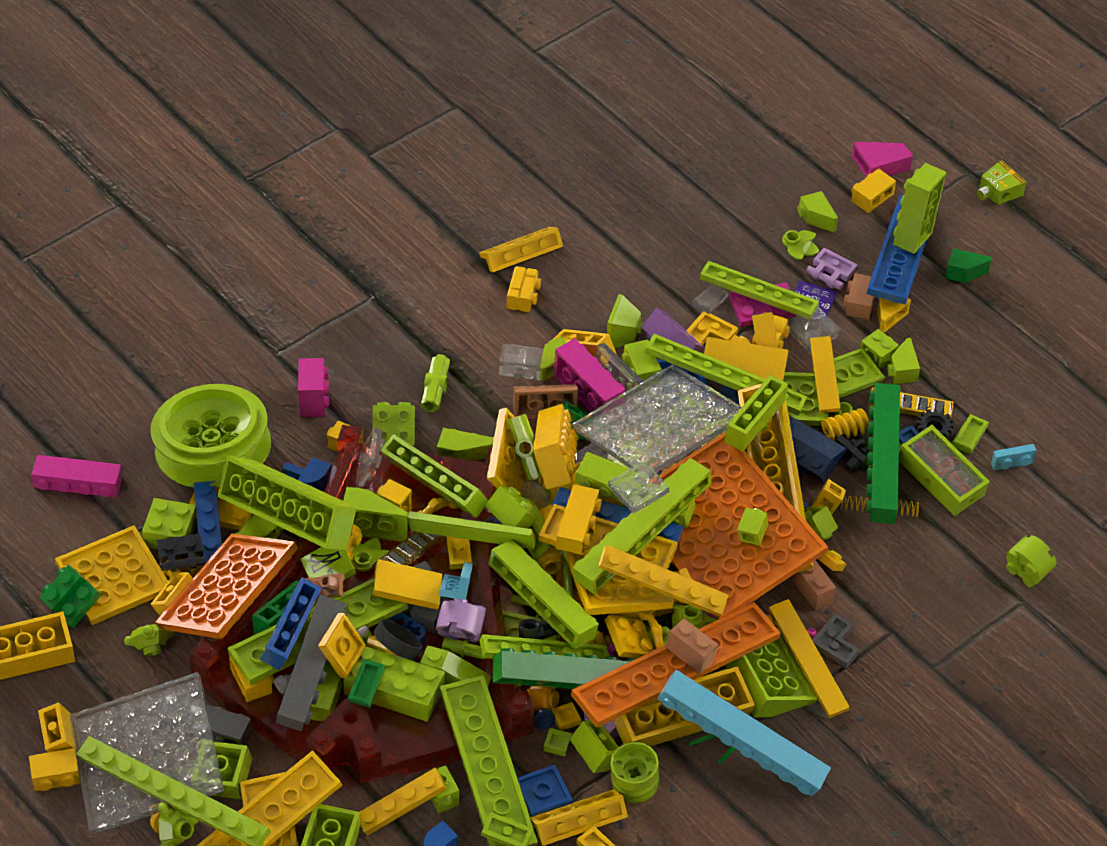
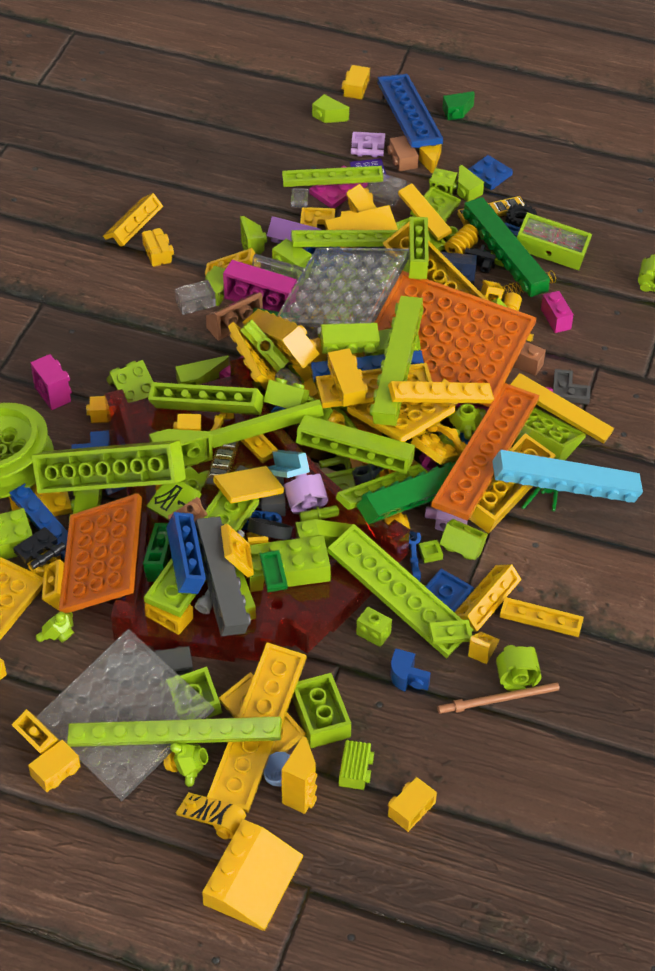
camera: 30 degrees left, 0 degrees up
(369, 457) = (143, 408): clear plate -> none
(401, 801) = (354, 648): yellow plate -> none
(435, 383) = (141, 339): lime piece -> none
(525, 756) = (414, 559): none -> blue piece
(566, 716) = (425, 529): yellow plate -> none
(635, 772) = (507, 542): lime wheel -> none
(638, 487) = (380, 331): clear plate -> none
(692, 645) = (493, 429): nougat brick -> none
(752, 526) = (473, 326): lime brick -> none
(800, 244) = (332, 137): lime plate -> none
(847, 520) = (513, 301): none -> yellow brick
(888, 157) = (340, 59): dark pink slope -> none
(888, 551) = (557, 311): none -> dark pink brick
(919, 207) = (411, 71): lime brick -> none
(943, 359) = (491, 171): none -> blue plate
(970, 434) = (546, 209): lime tile -> none
(1001, 184) = (439, 44): lime torso -> none
(1013, 457) = (588, 214): medium azure plate -> none

